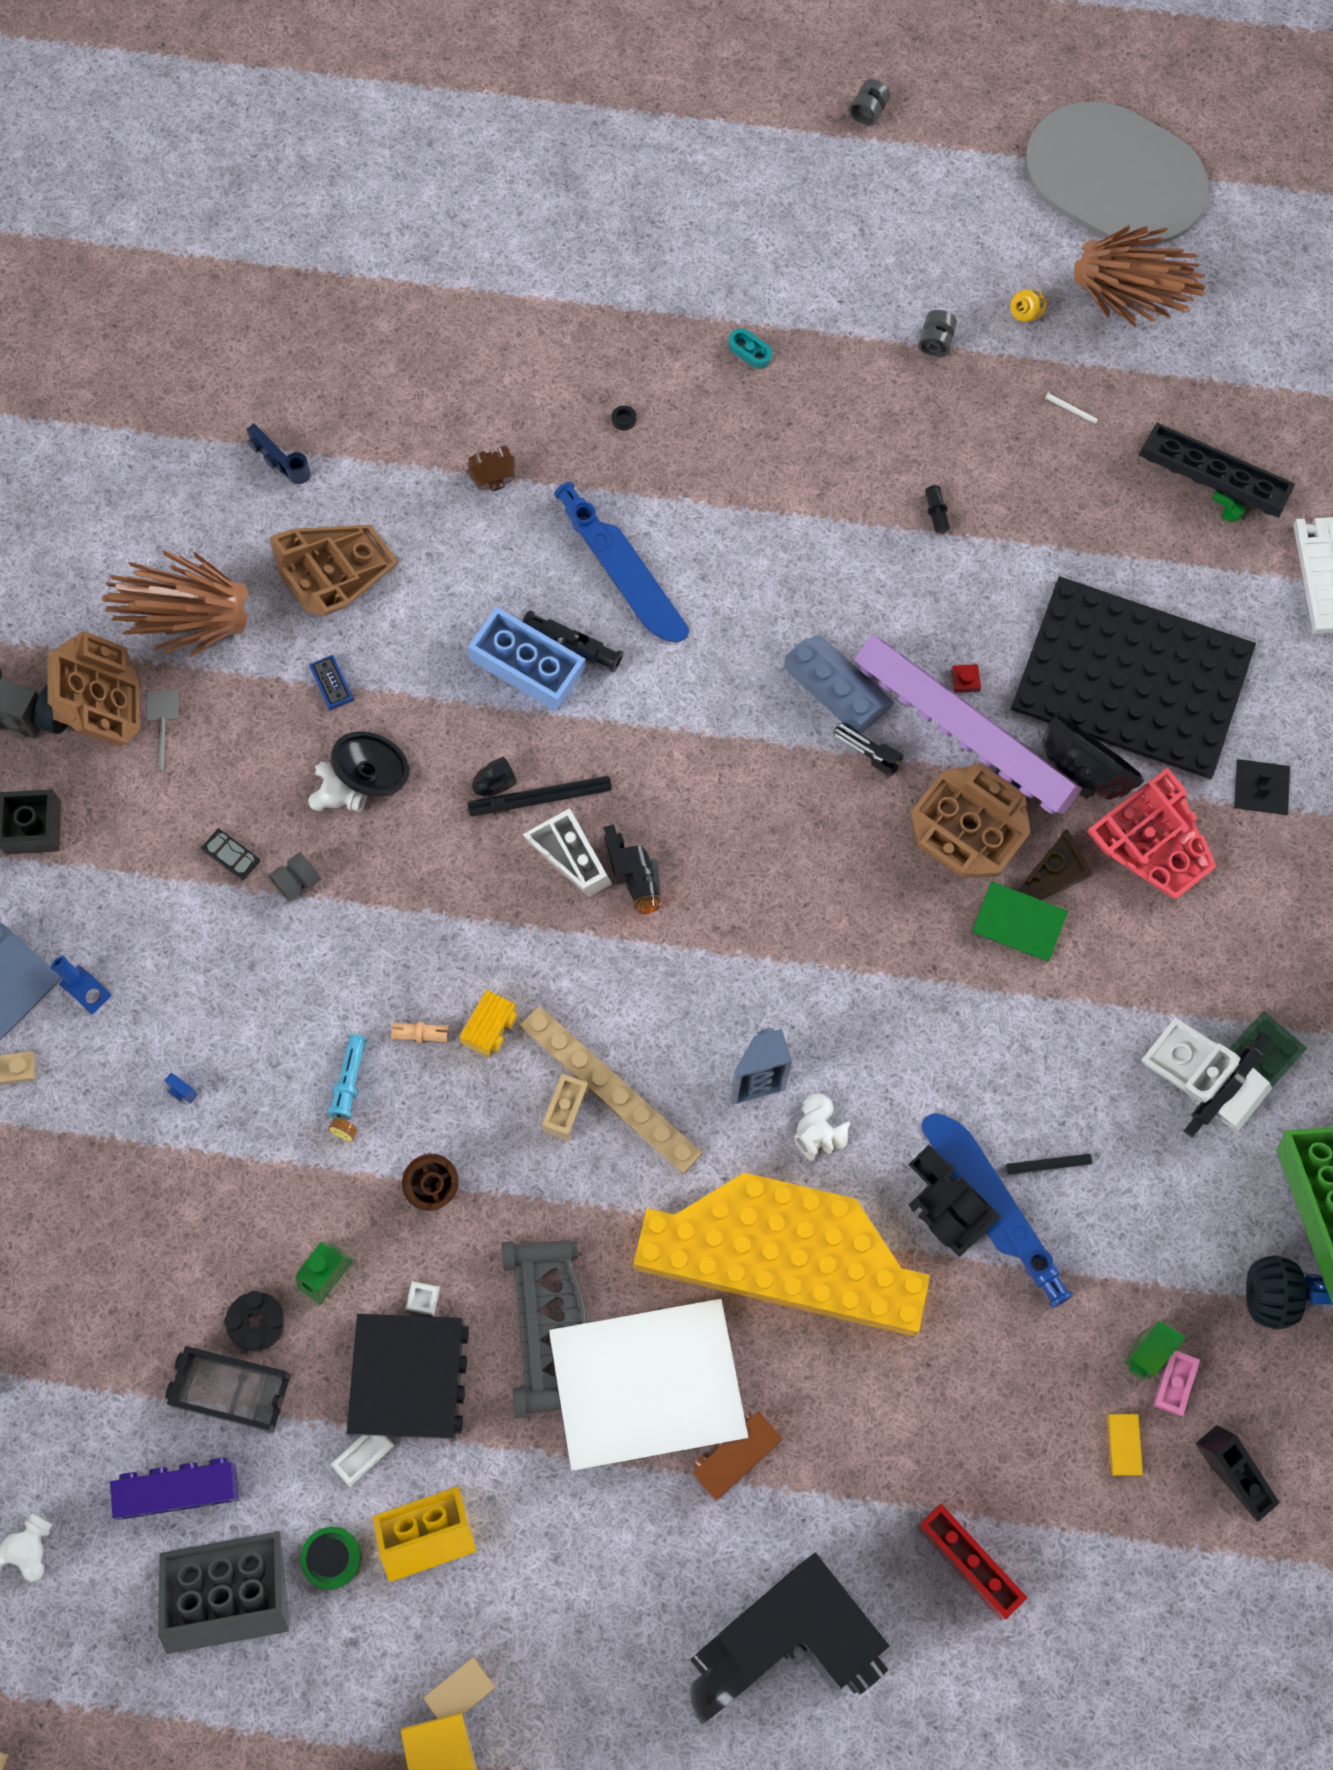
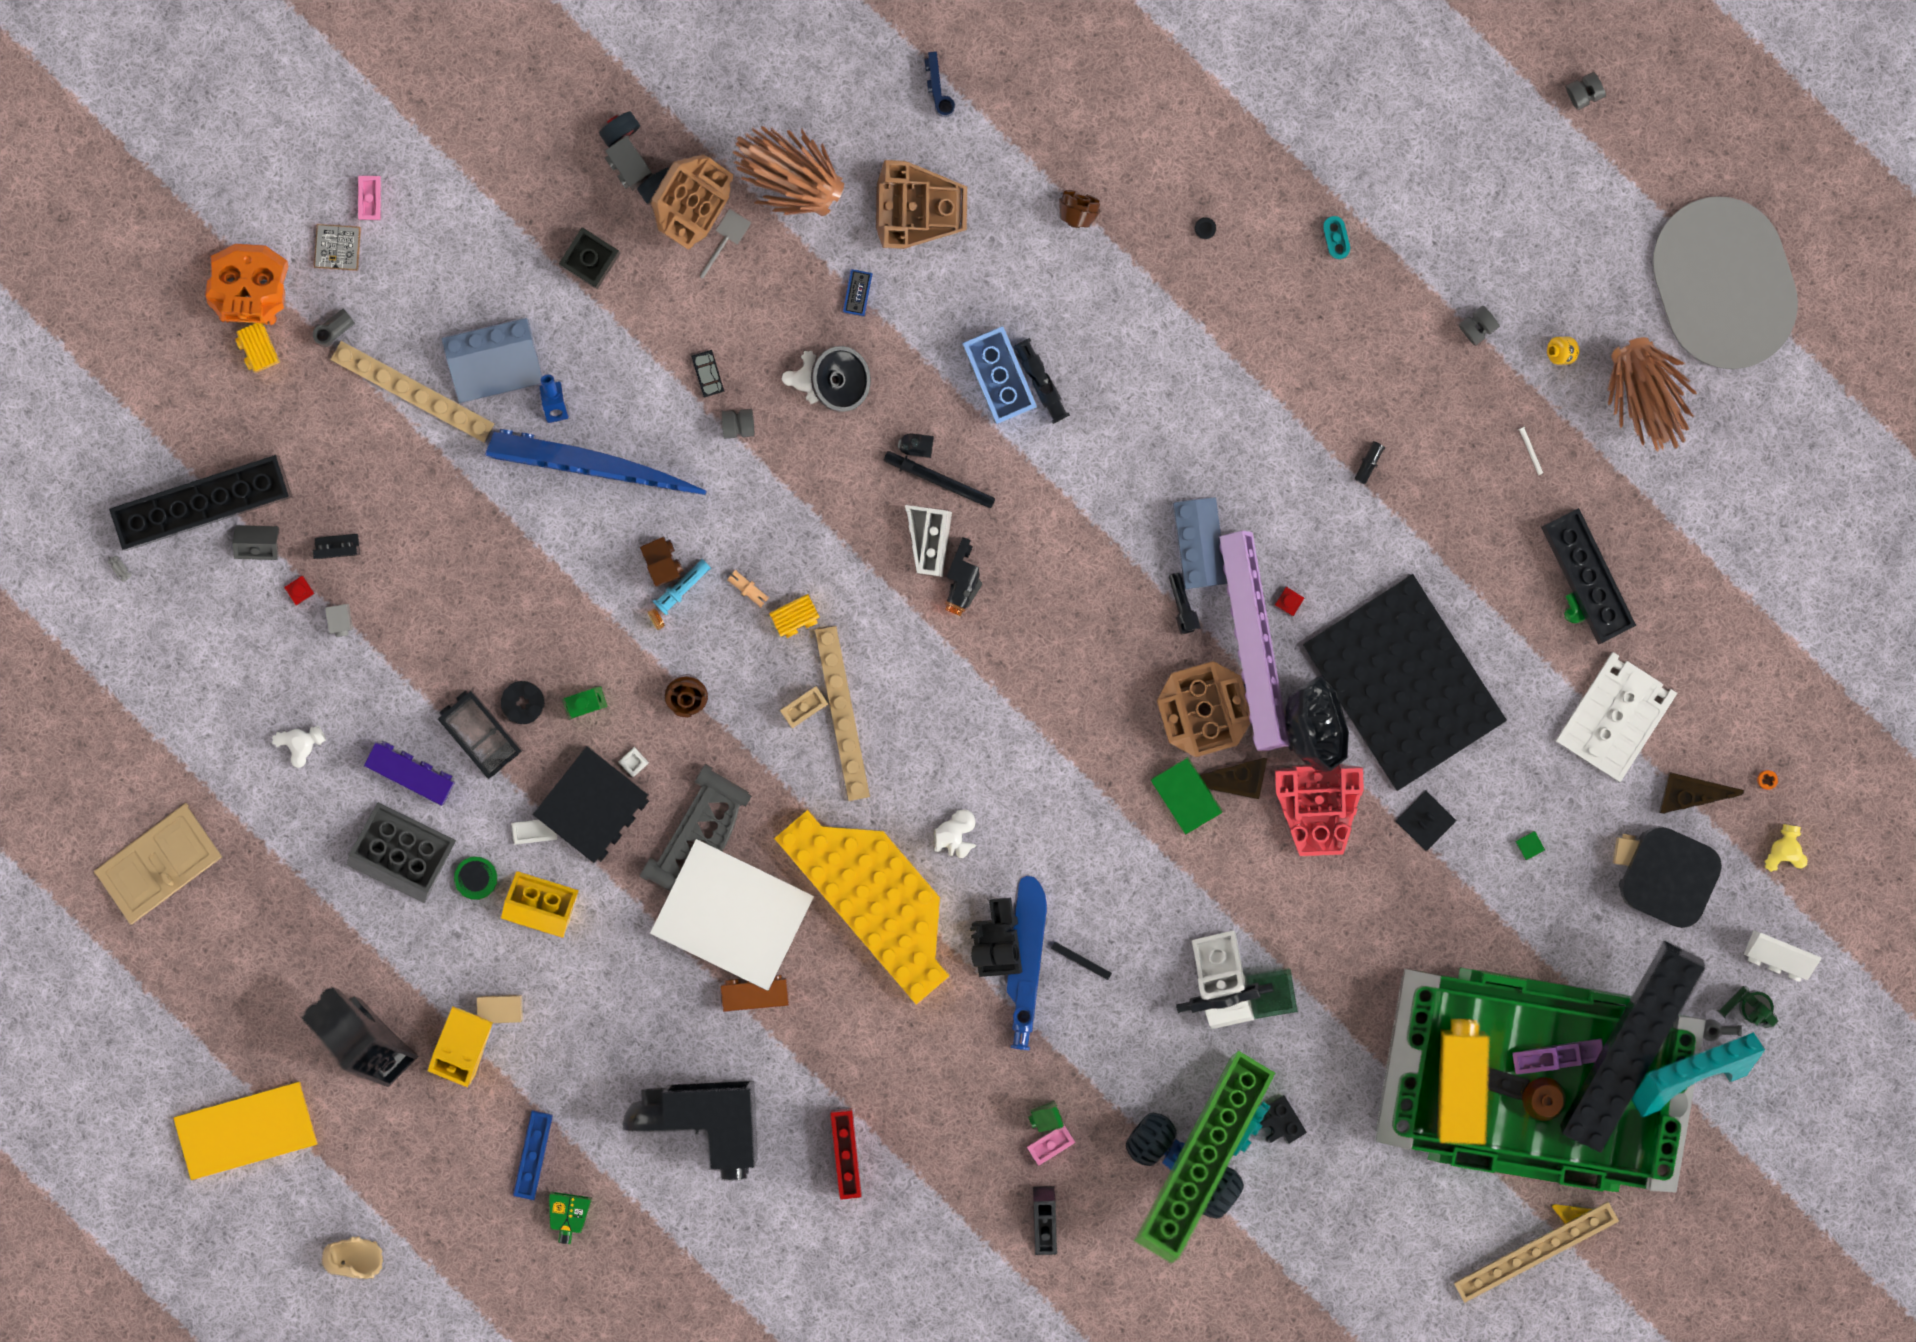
camera: 35 degrees right, 20 degrees up
(153, 1023) = (574, 459): none -> blue wedge
(179, 1088) = (570, 518): blue plate -> none
(308, 1065) = (661, 561): none -> reddish brown brick
(624, 568) = (1118, 352): blue piece -> none
(762, 1068) = (940, 777): sand blue slope -> none
(1124, 1445) = (991, 1156): yellow tile -> none

